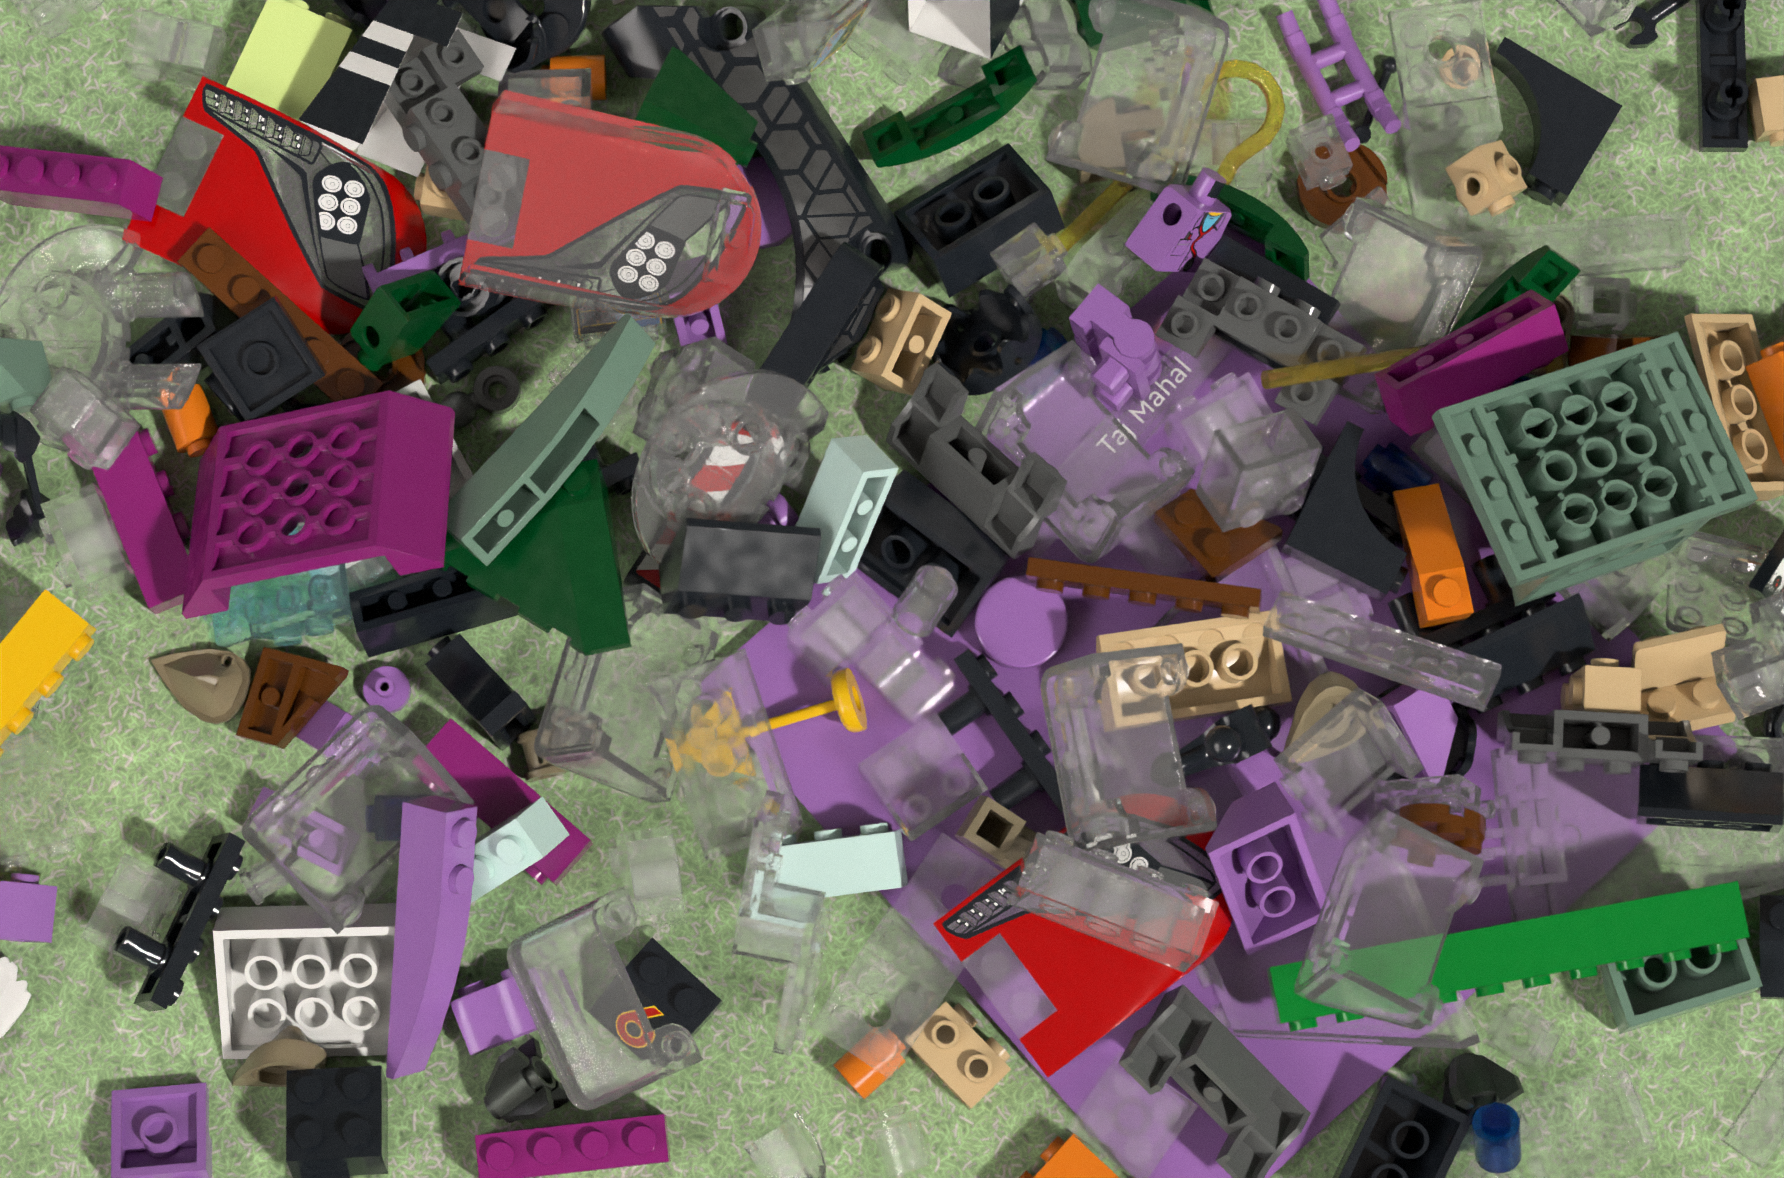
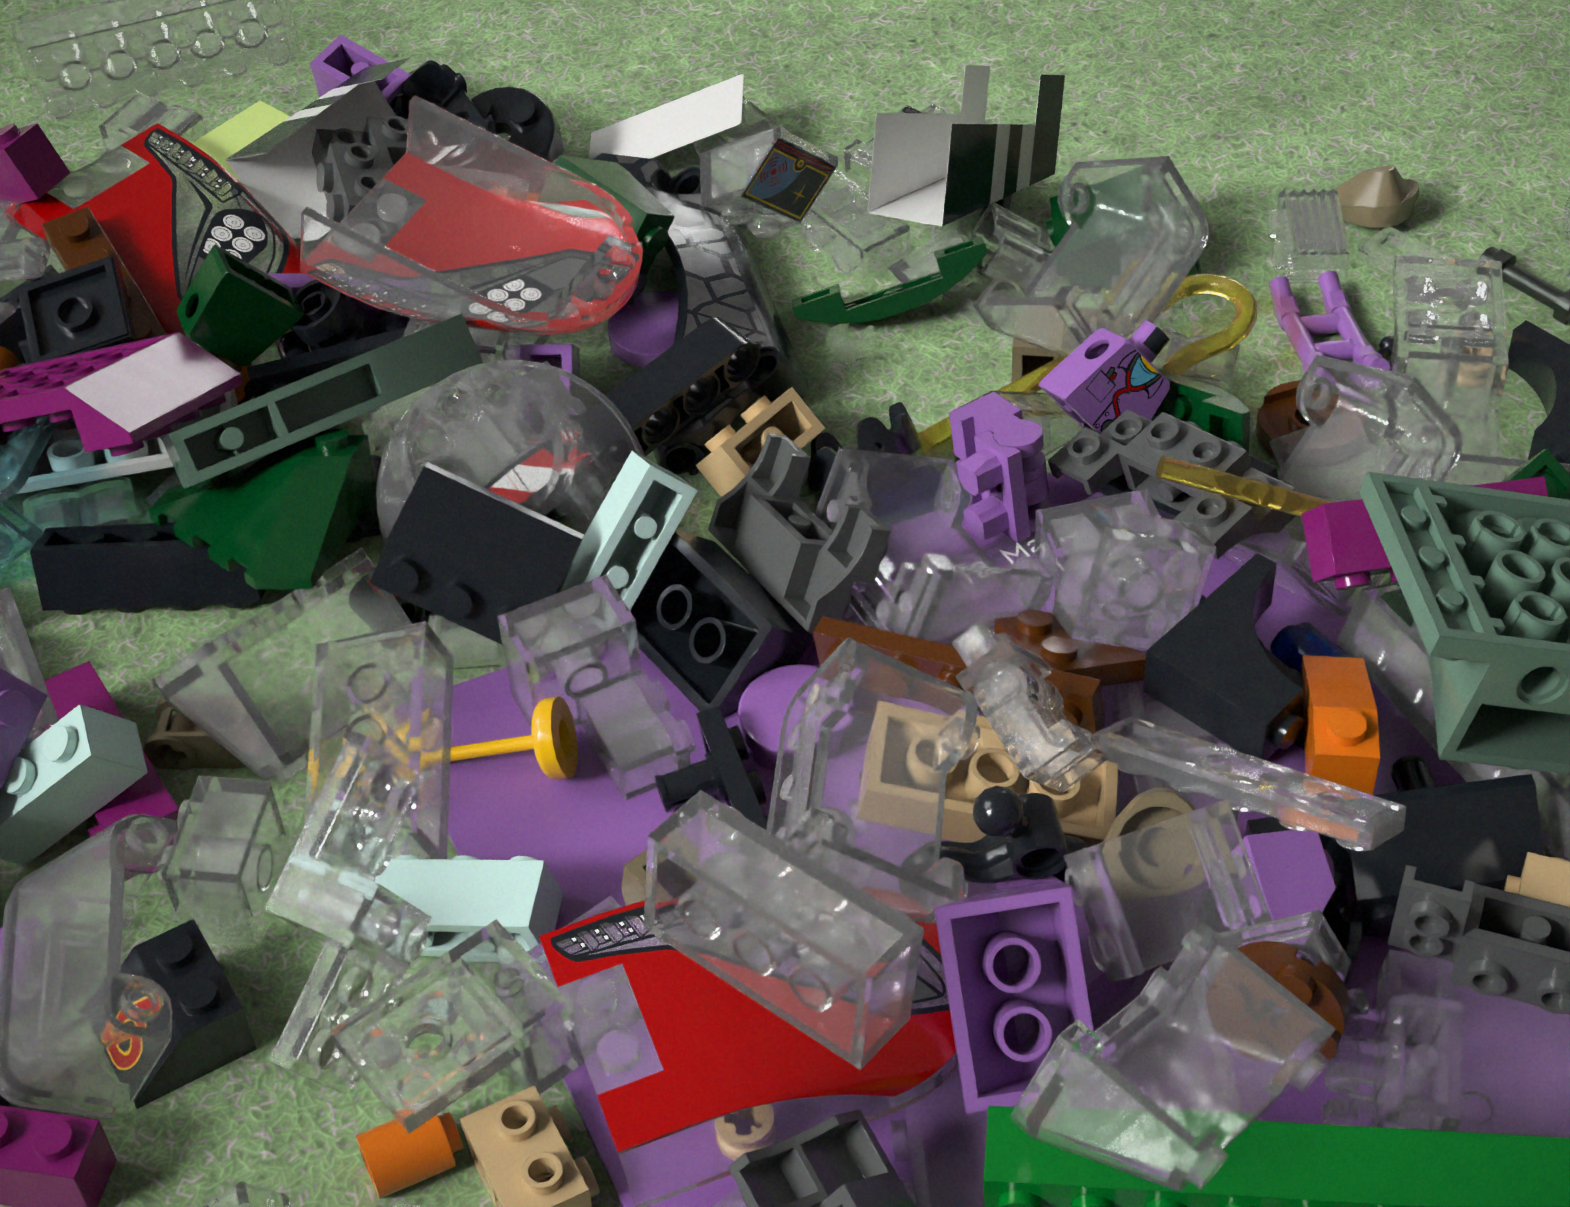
camera: 25 degrees right, 35 degrees down
(395, 697) = (51, 643): medium lavender tile -> none
(480, 690) = (137, 648): black arch -> none
(922, 777) = (599, 816): clear slope -> none
(925, 600) = (685, 649): clear brick -> none
(977, 215) = (912, 370): black slope -> none
(1030, 260) = (931, 398): clear brick -> none
(1219, 644) = (1026, 709): none -> clear hips
(1313, 170) = (1280, 364): clear brick -> none
(1487, 179) = (1493, 417): tan brick -> none

